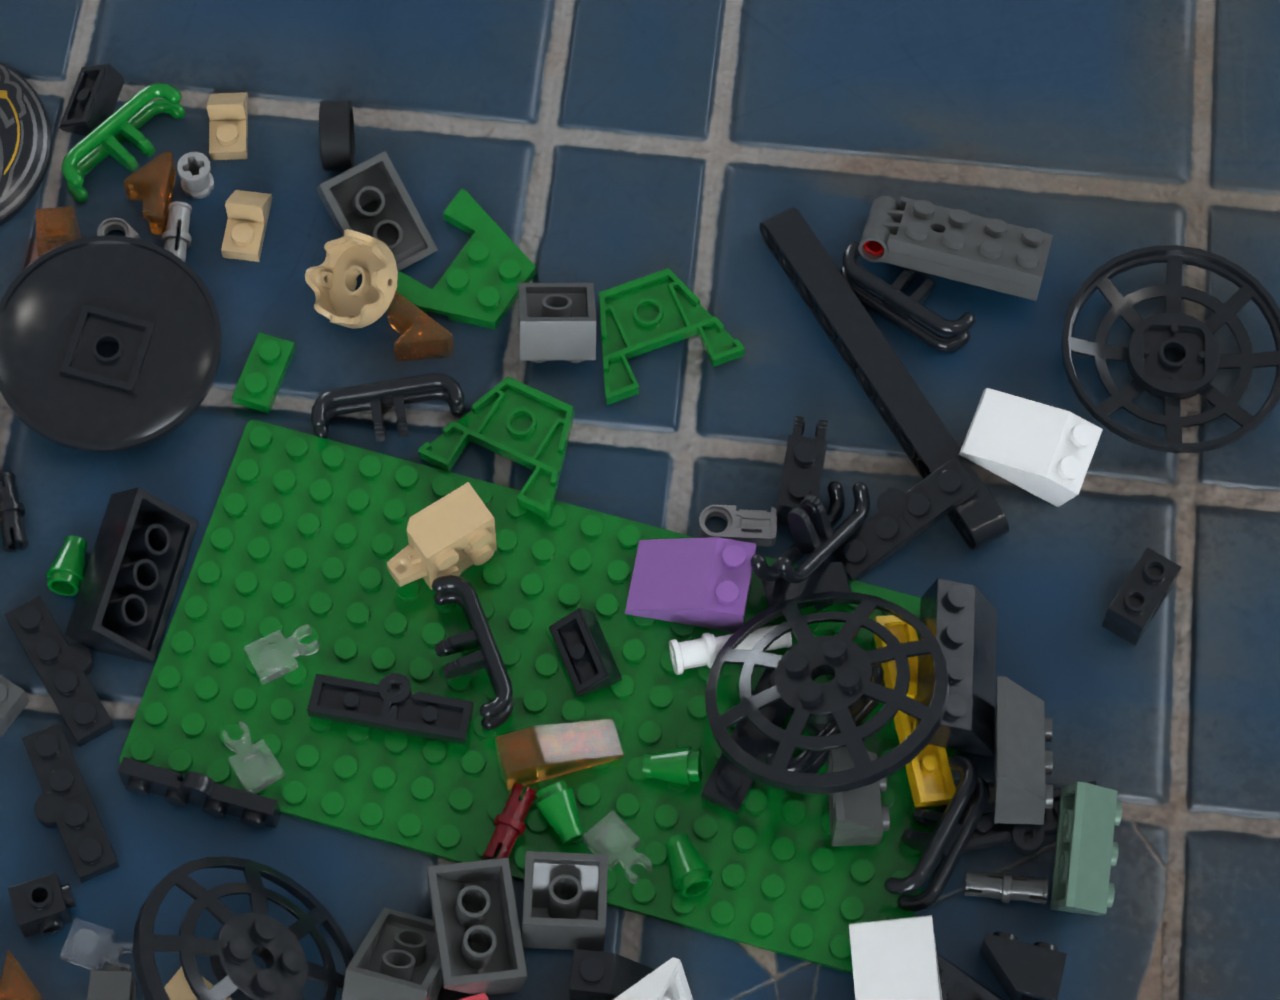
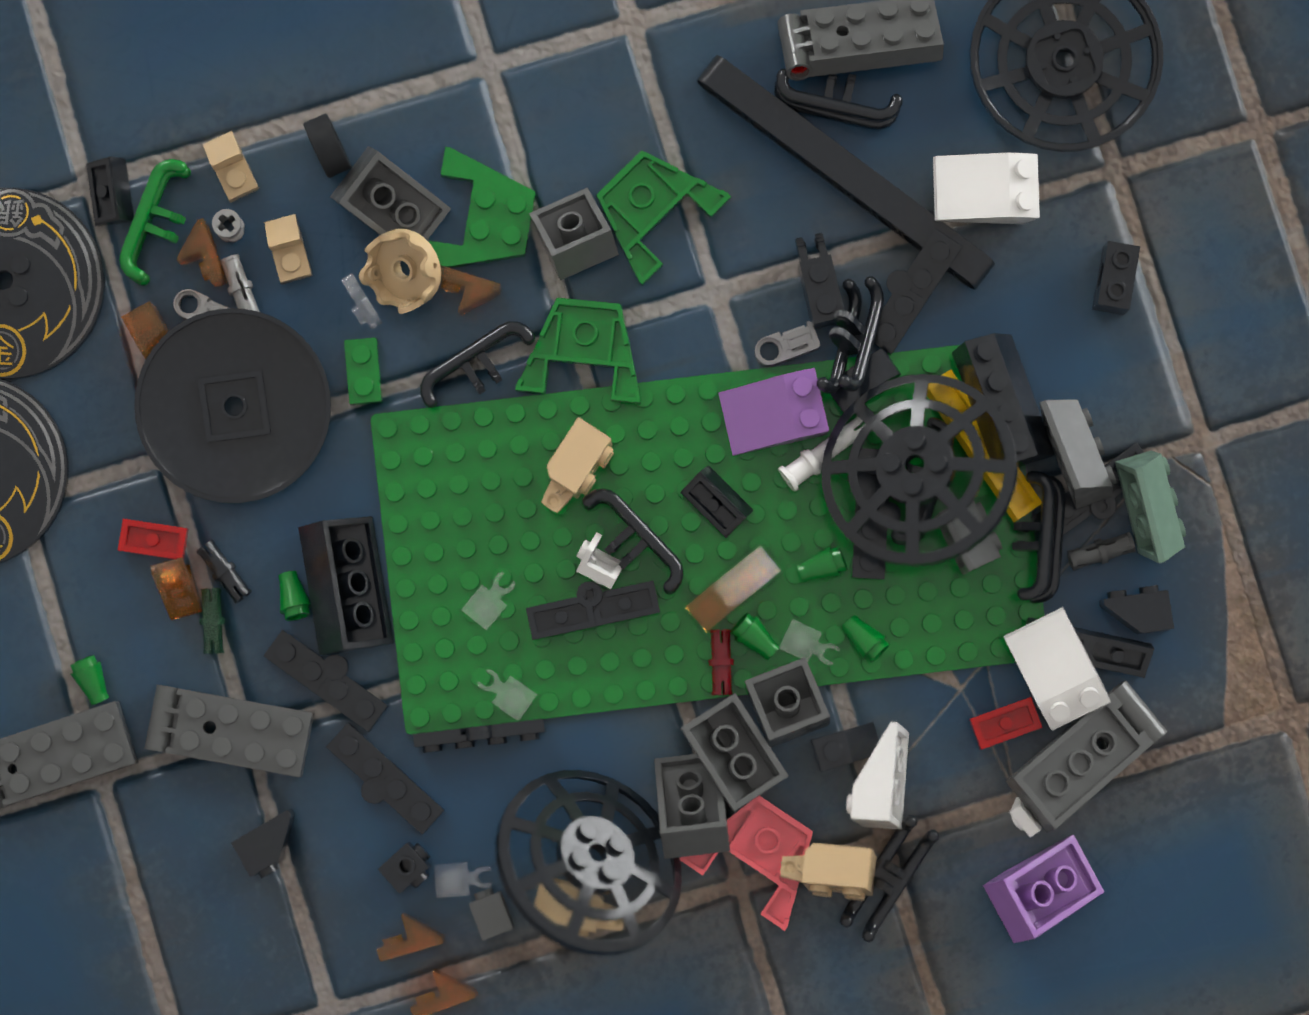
camera: 20 degrees left, 20 degrees up
(295, 309) = (363, 310): none -> clear plate
(417, 660) = (597, 564): none -> white bracket

